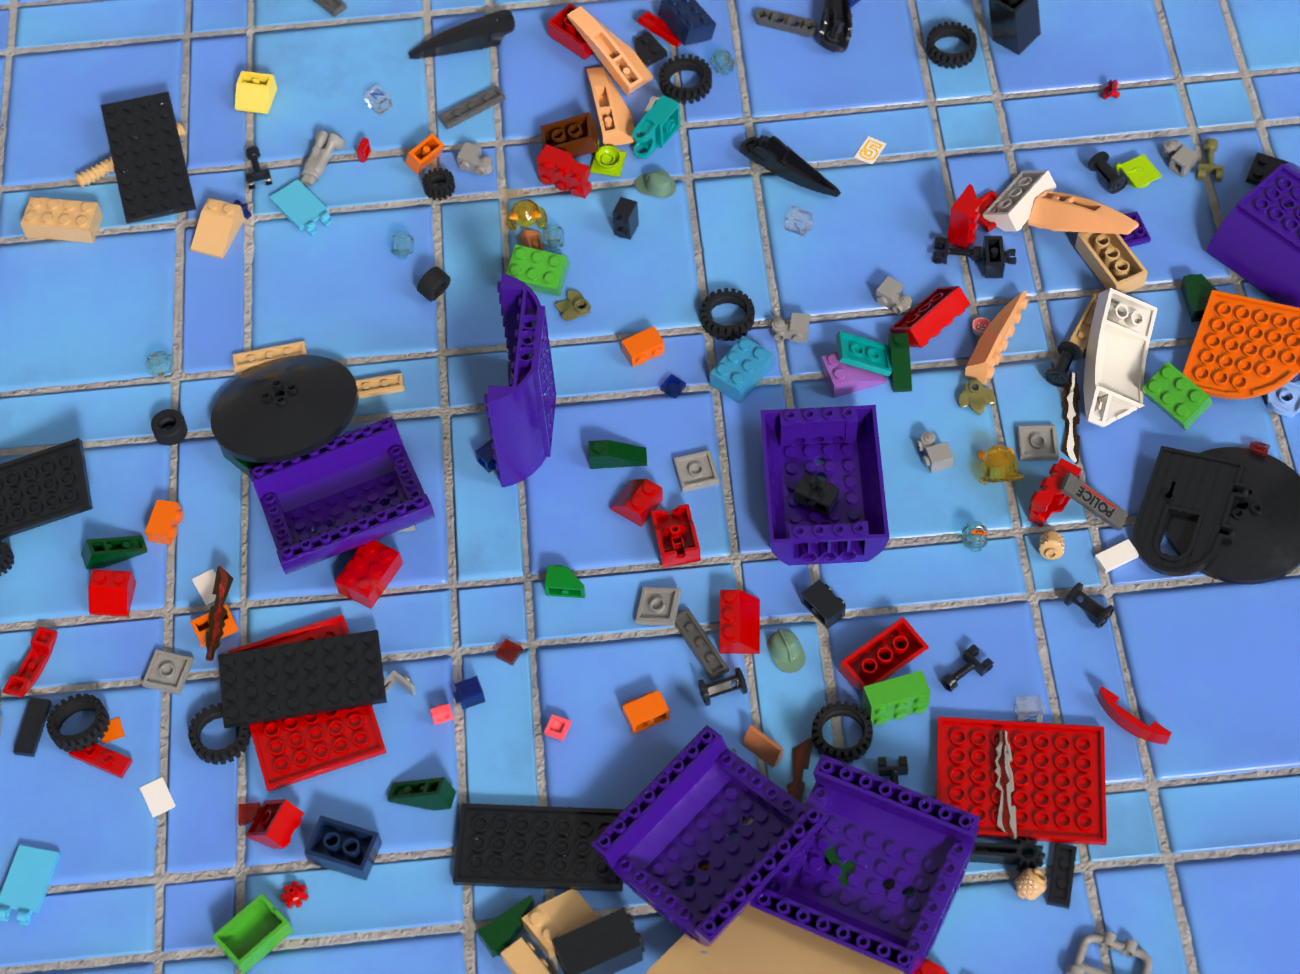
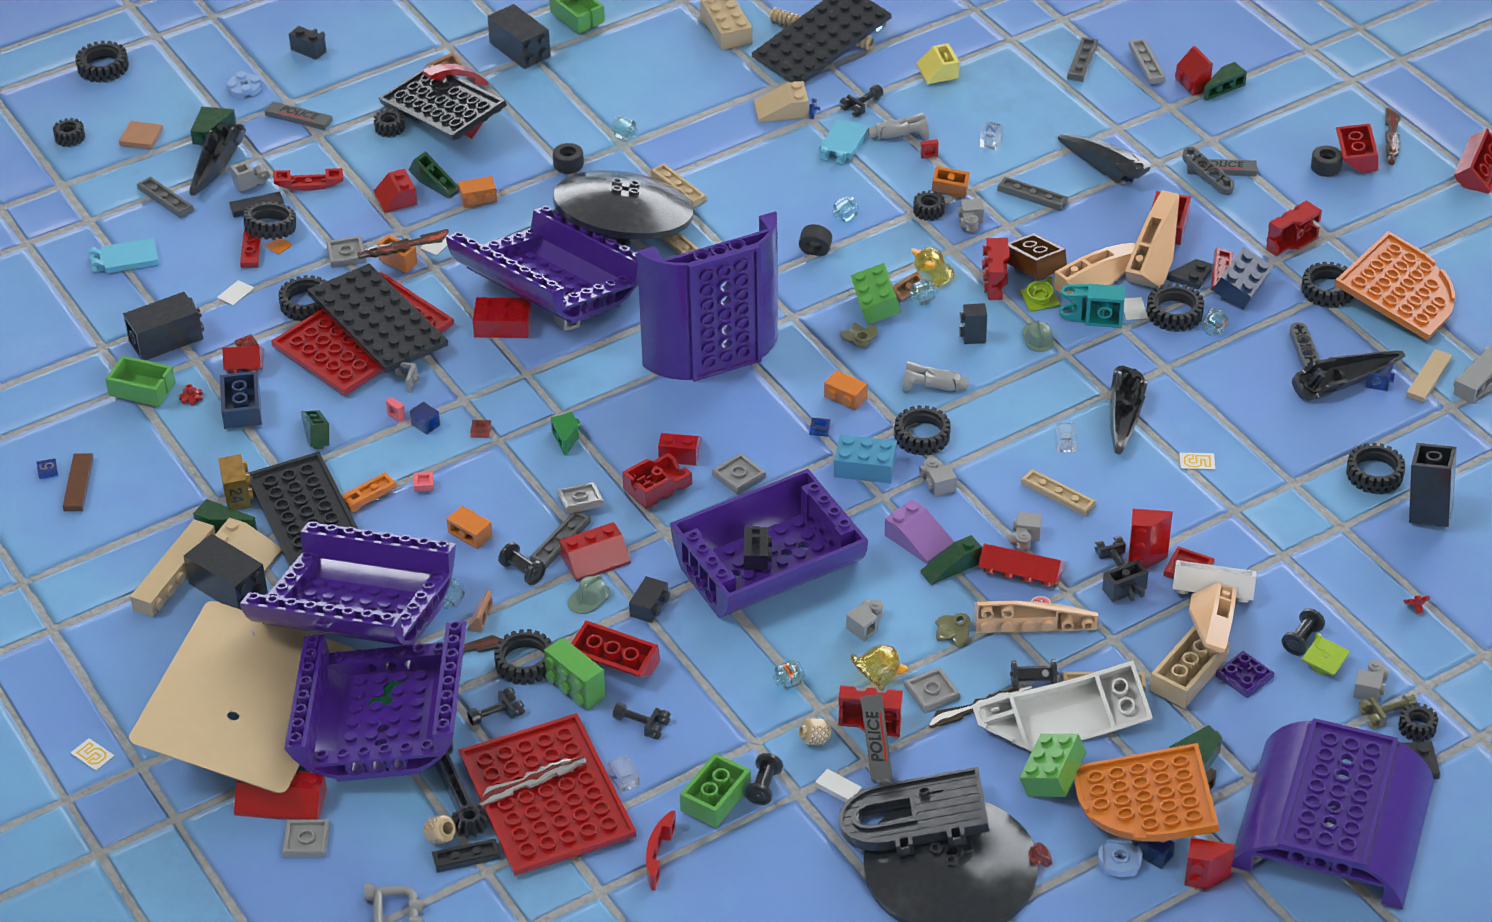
camera: 60 degrees right, 15 degrees down
(182, 881) = (163, 326): none -> black brick
(468, 895) = (235, 482): none -> pearl gold brick
(542, 779) = (368, 491): none -> orange plate
(615, 454) = (717, 414): dark green slope -> none
(667, 278) = (933, 378): none -> light grey piece
(855, 256) = (1058, 492): none -> tan tile
(864, 353) = (935, 524): teal plate -> none
(1088, 646) = (715, 790): none -> bright green brick
(1234, 143) = (1421, 714): none -> black tyre

